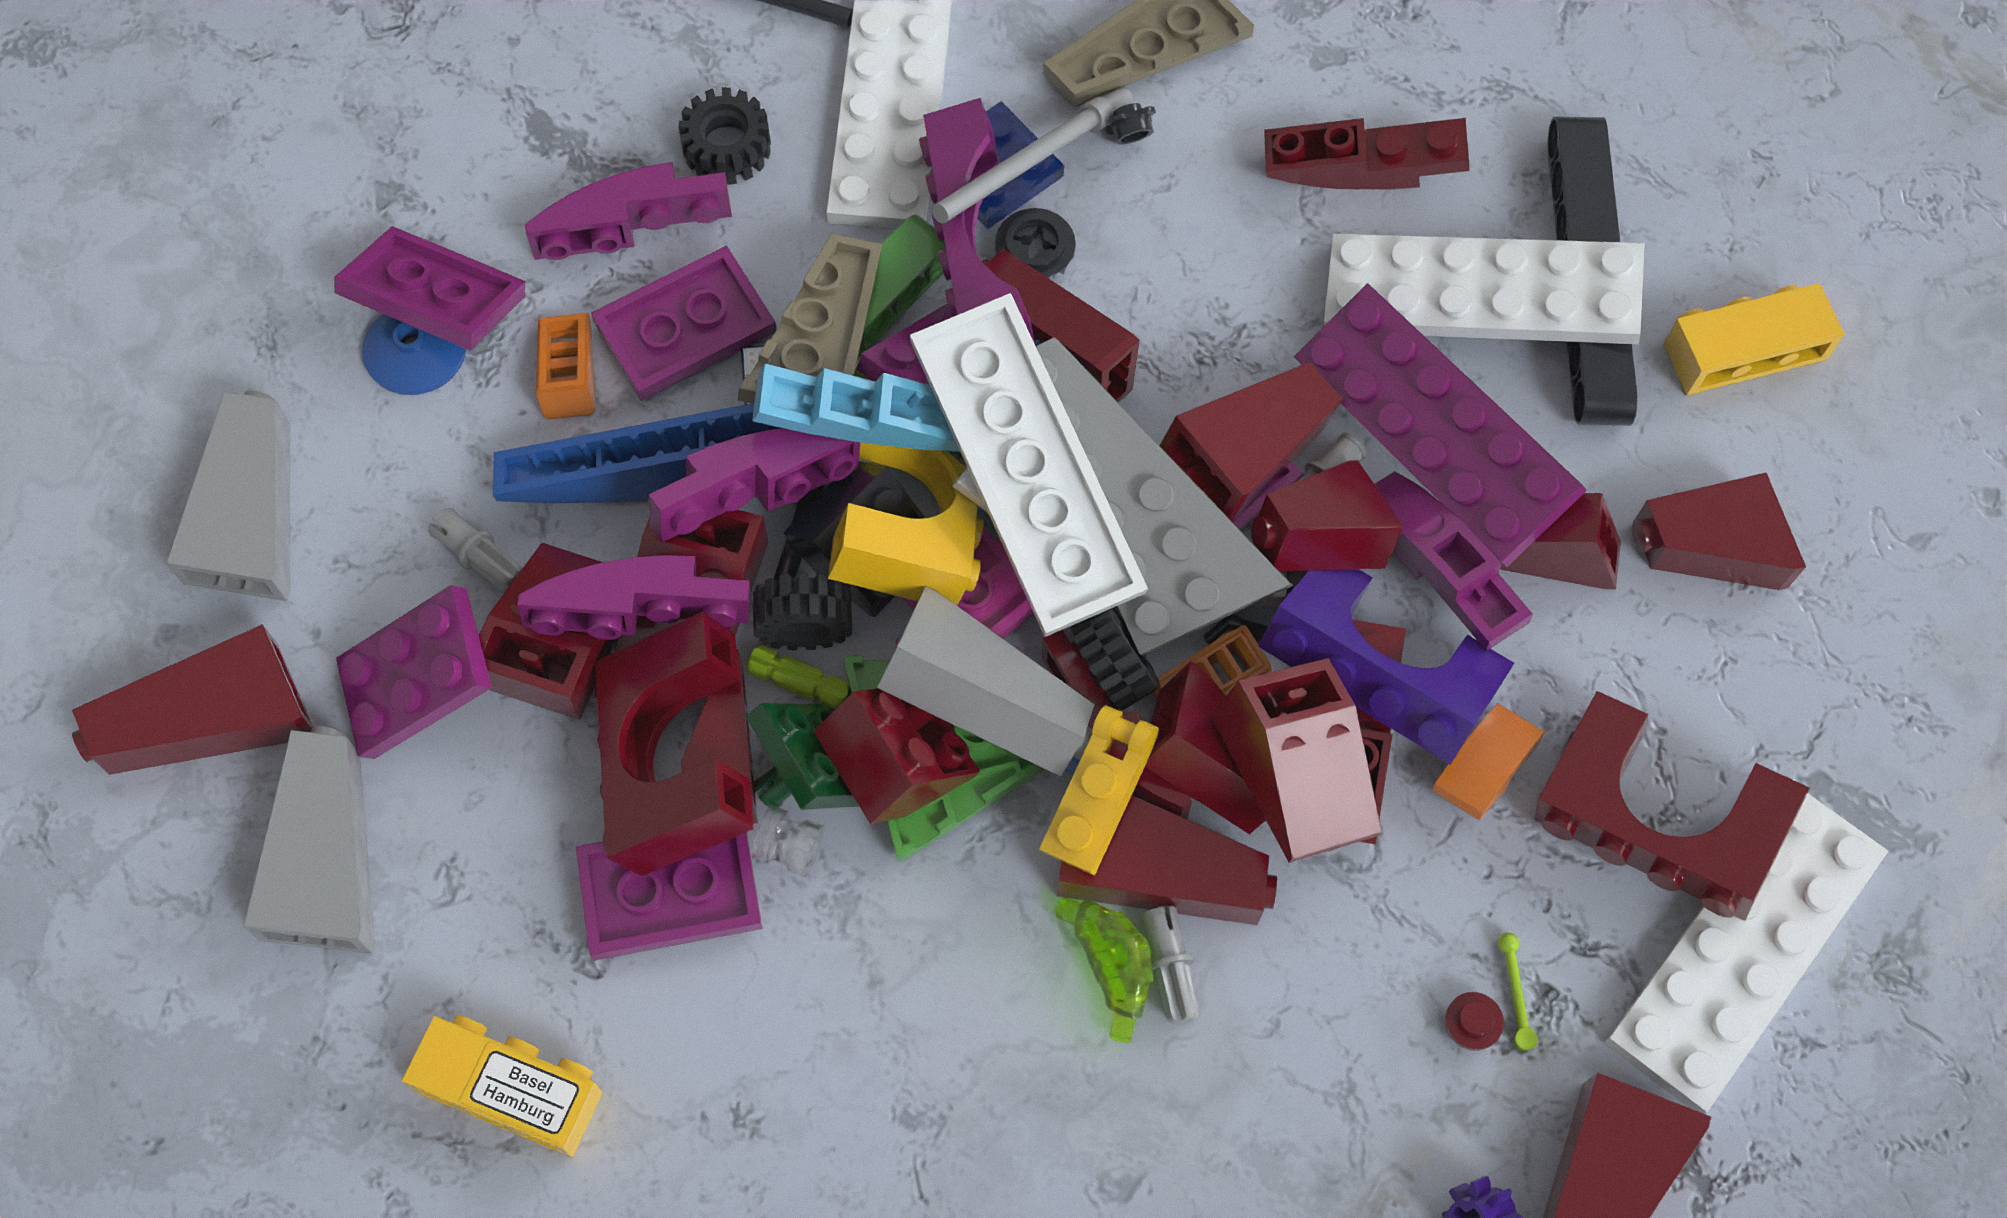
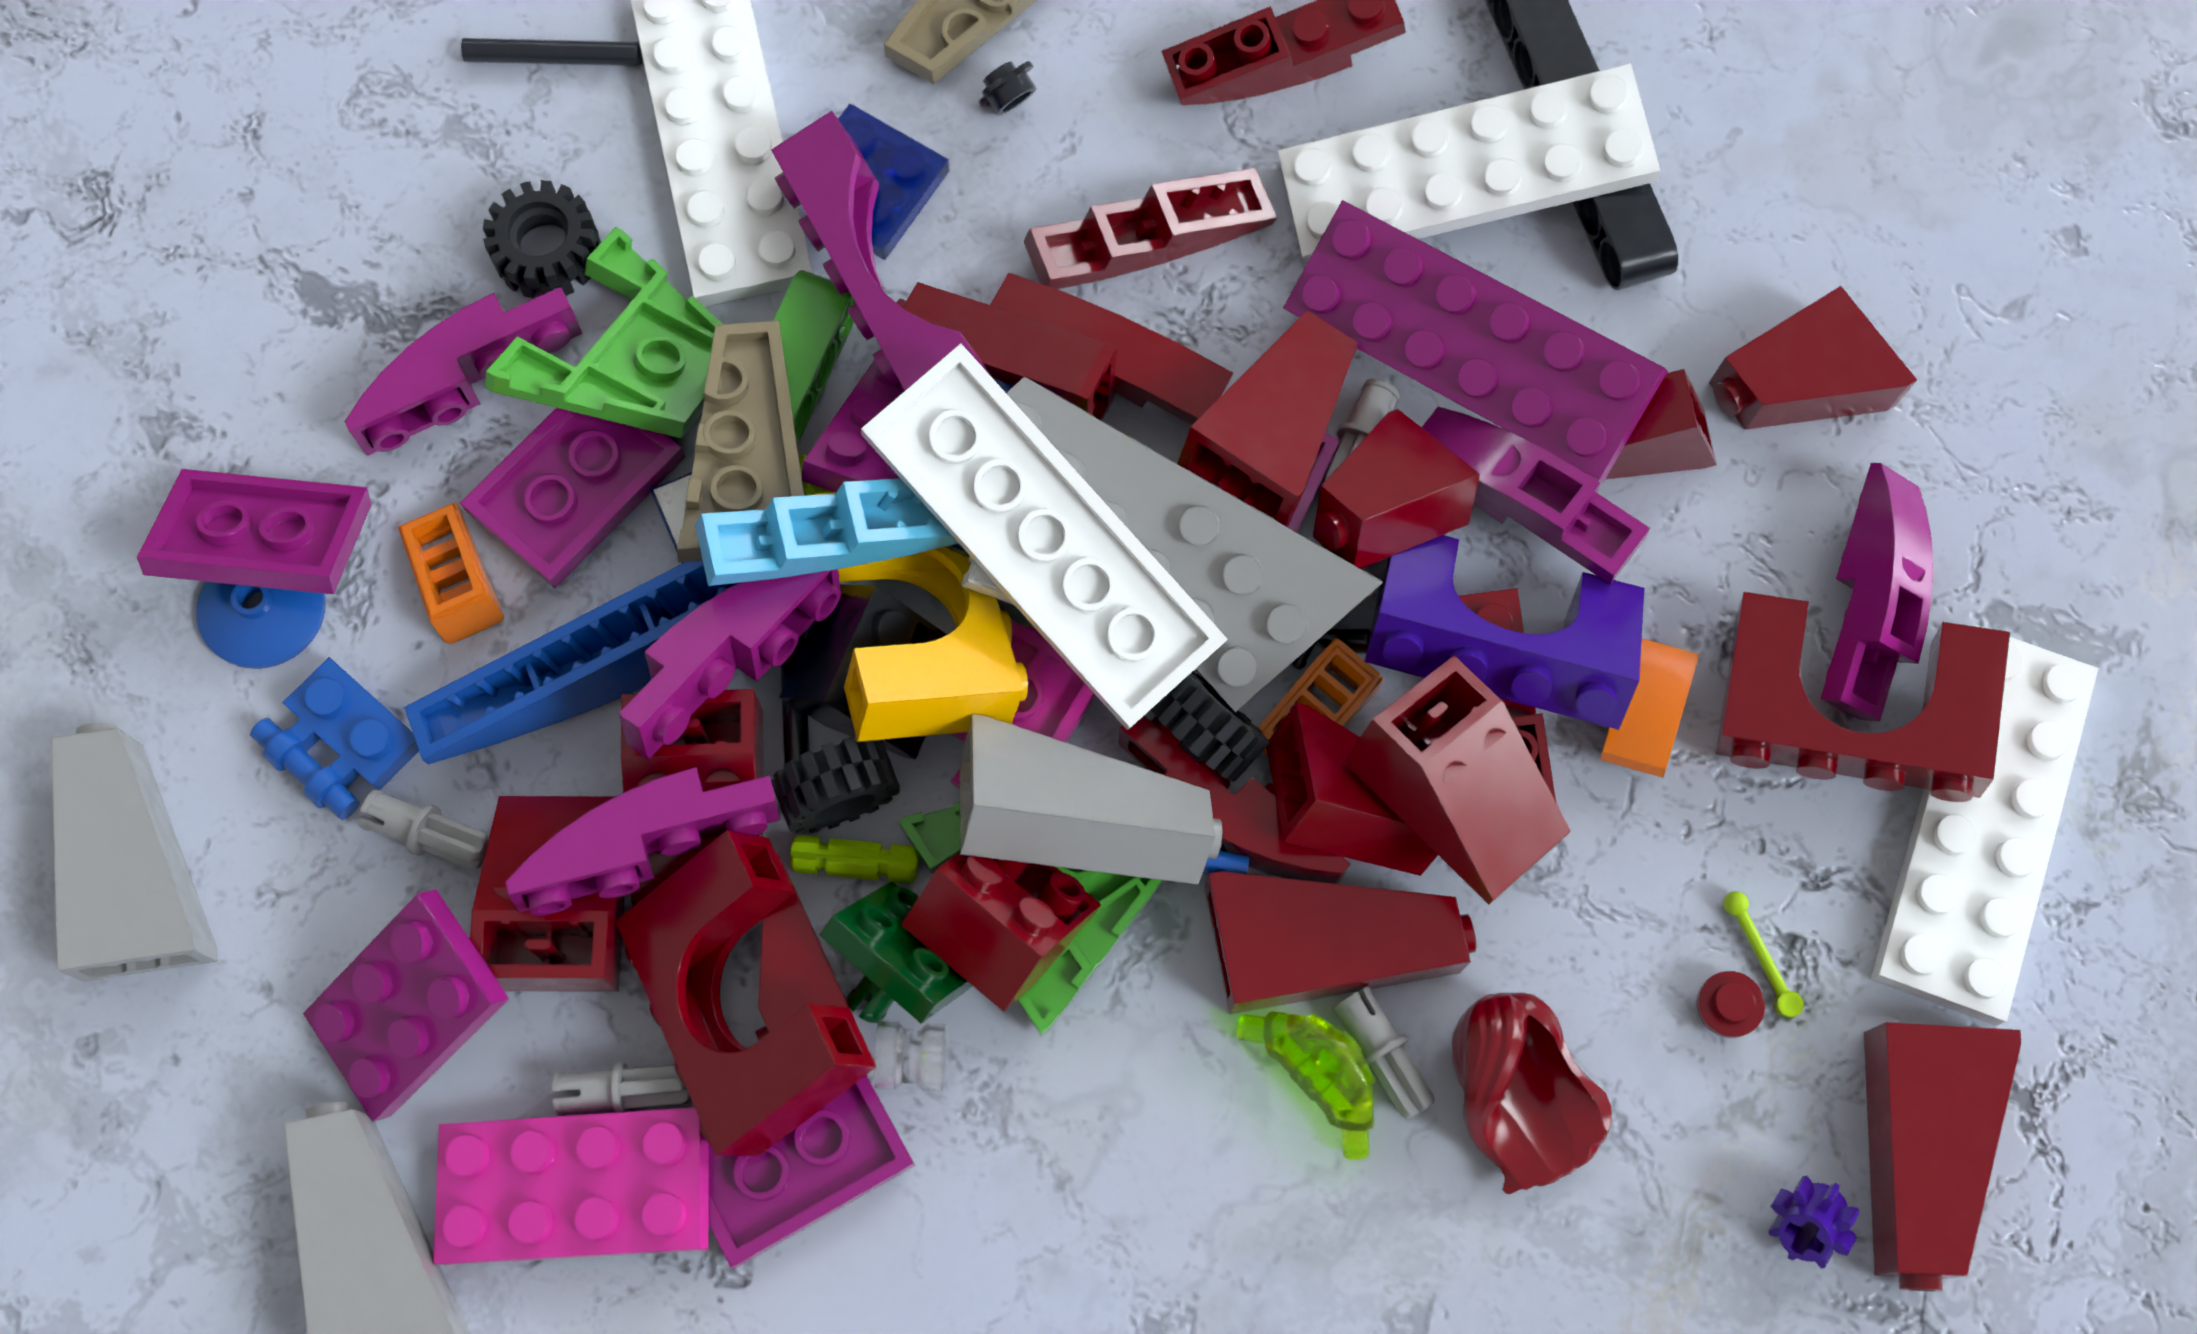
camera: 20 degrees left, 5 degrees up
(195, 709) = (159, 1127): dark red slope -> none
(450, 453) = (352, 724): none -> blue plate
(490, 854) = (571, 1187): none -> dark pink plate
(552, 793) = (619, 1089): none -> light grey axle
(763, 252) = (641, 370): none -> bright green wing
(1056, 239) = (967, 245): black gear -> none
(1091, 117) = (961, 94): light grey bar -> none
(1099, 791) = (1248, 890): yellow plate -> none
(1163, 362) = (1146, 362): none -> dark red slope
(1199, 266) = (1151, 230): none -> dark red slope
(1275, 1031) = (1524, 1091): none -> dark red piece
(1724, 732) = (1890, 603): none -> magenta slope
(1753, 338) = (1771, 134): yellow brick -> none

